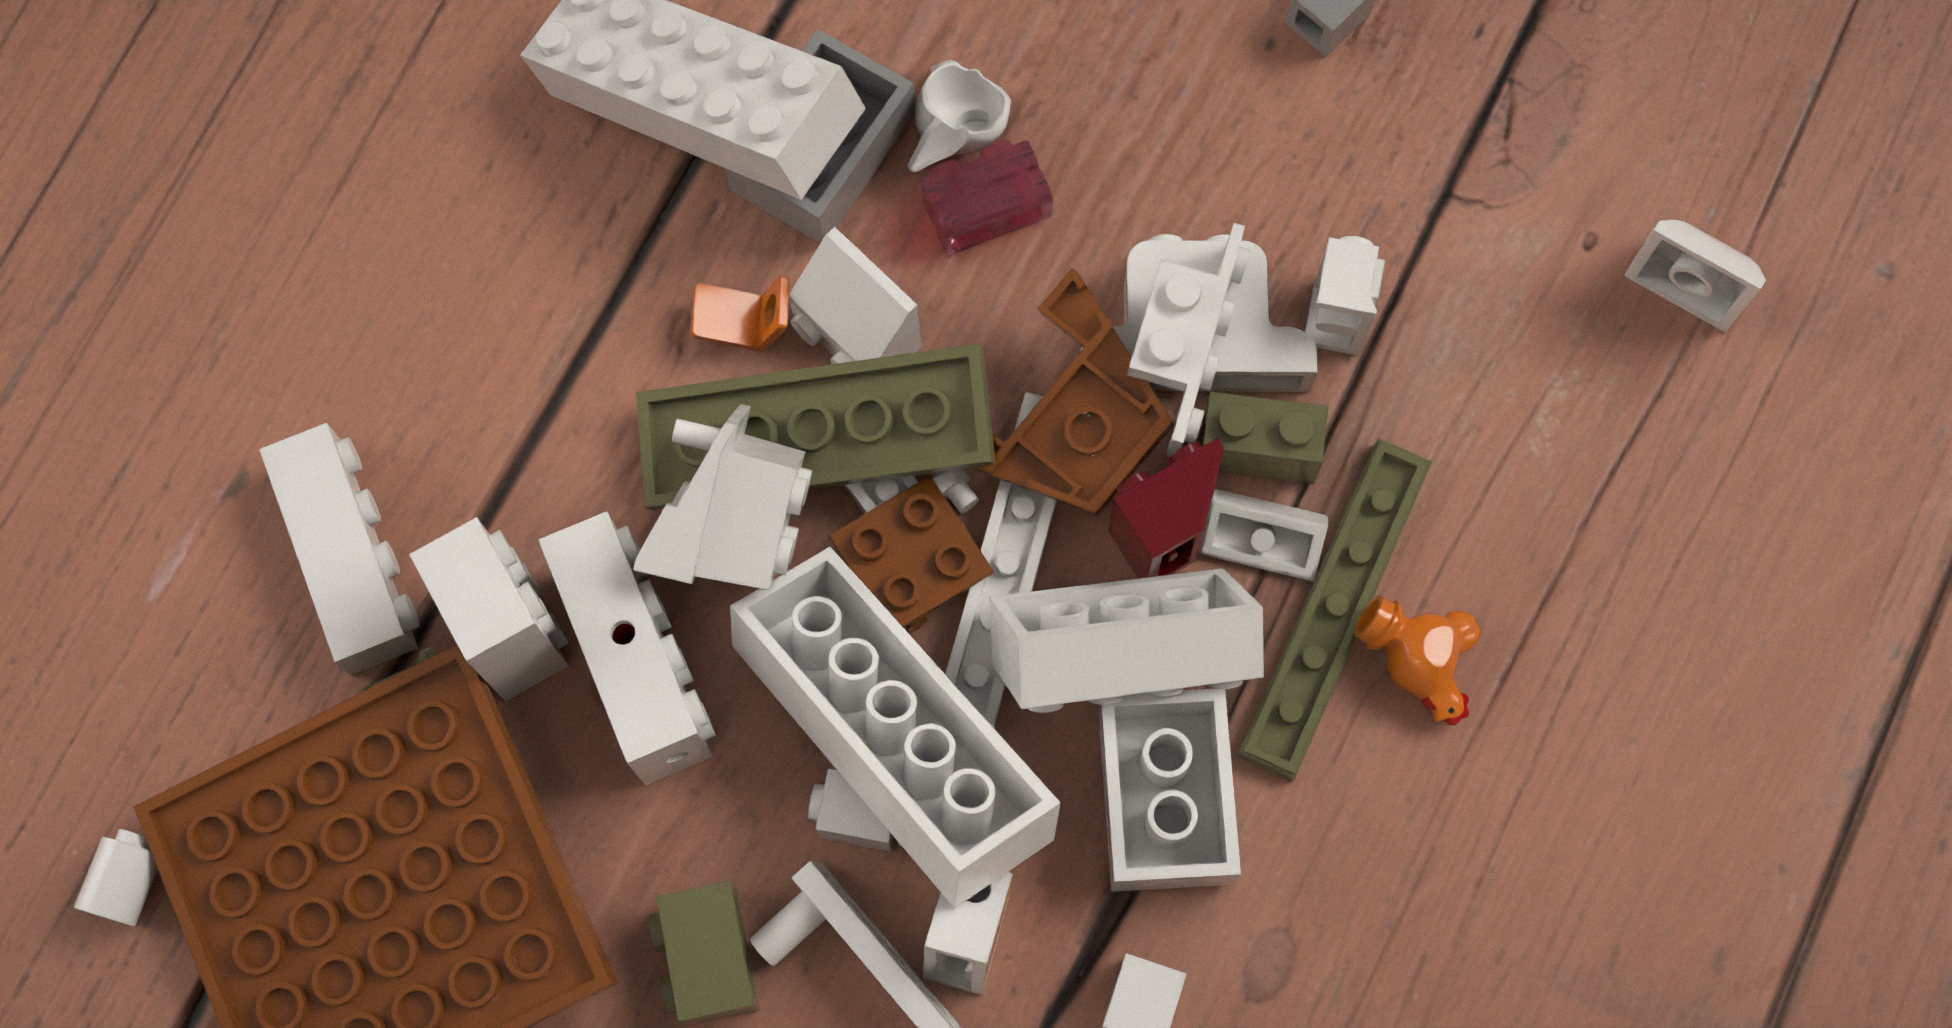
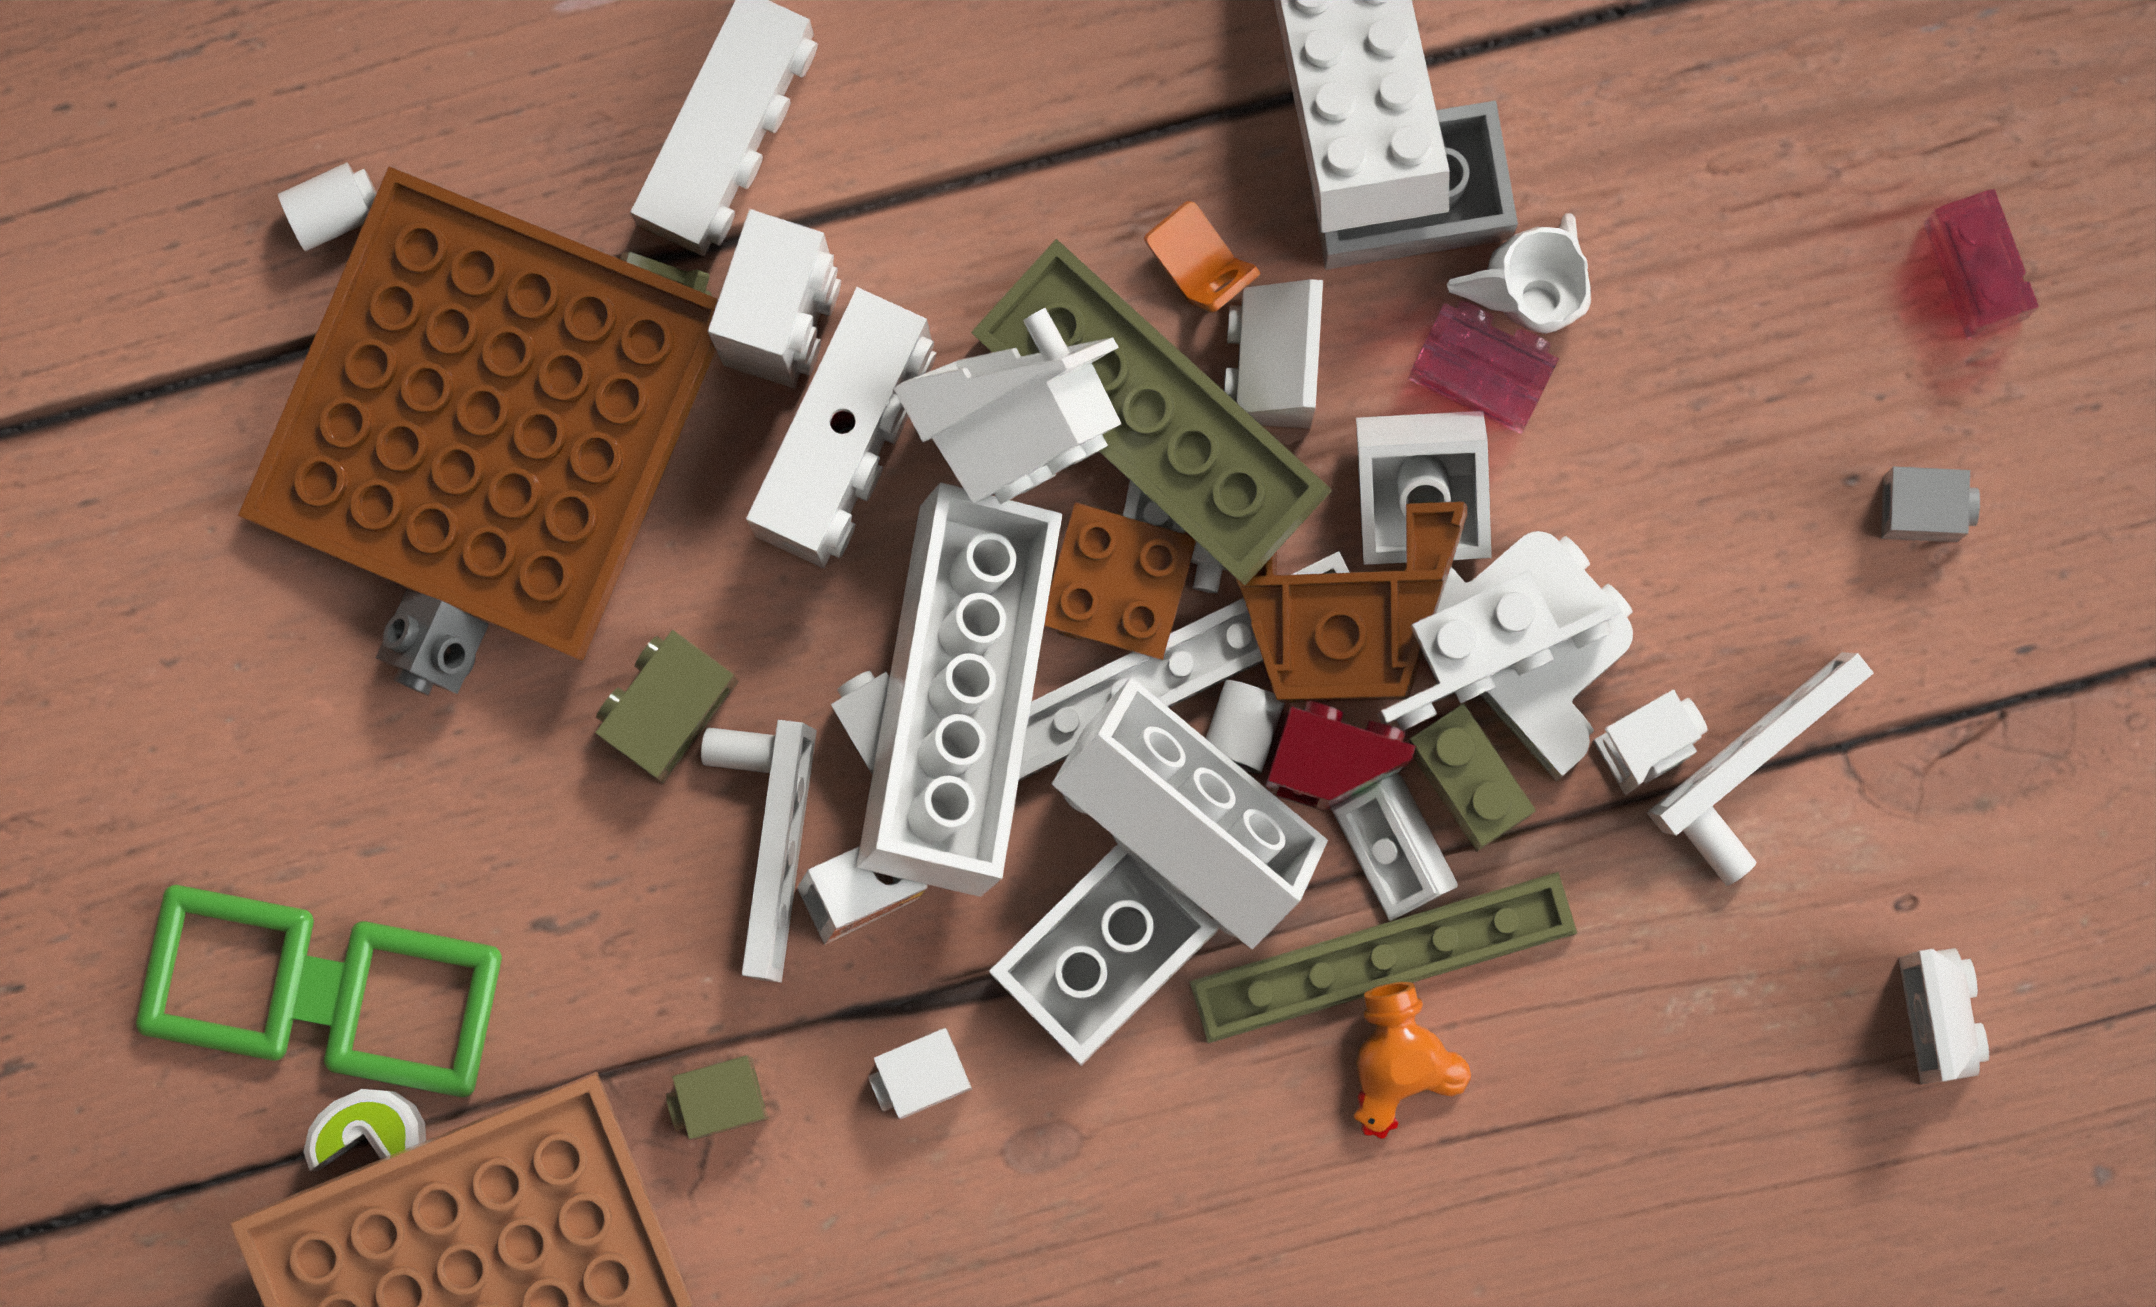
camera: 50 degrees right, 10 degrees up
(1011, 283) = (1422, 462): none -> white slope
(1088, 553) = (1245, 724): none -> white brick
(1404, 308) = (1691, 804): none -> white piece

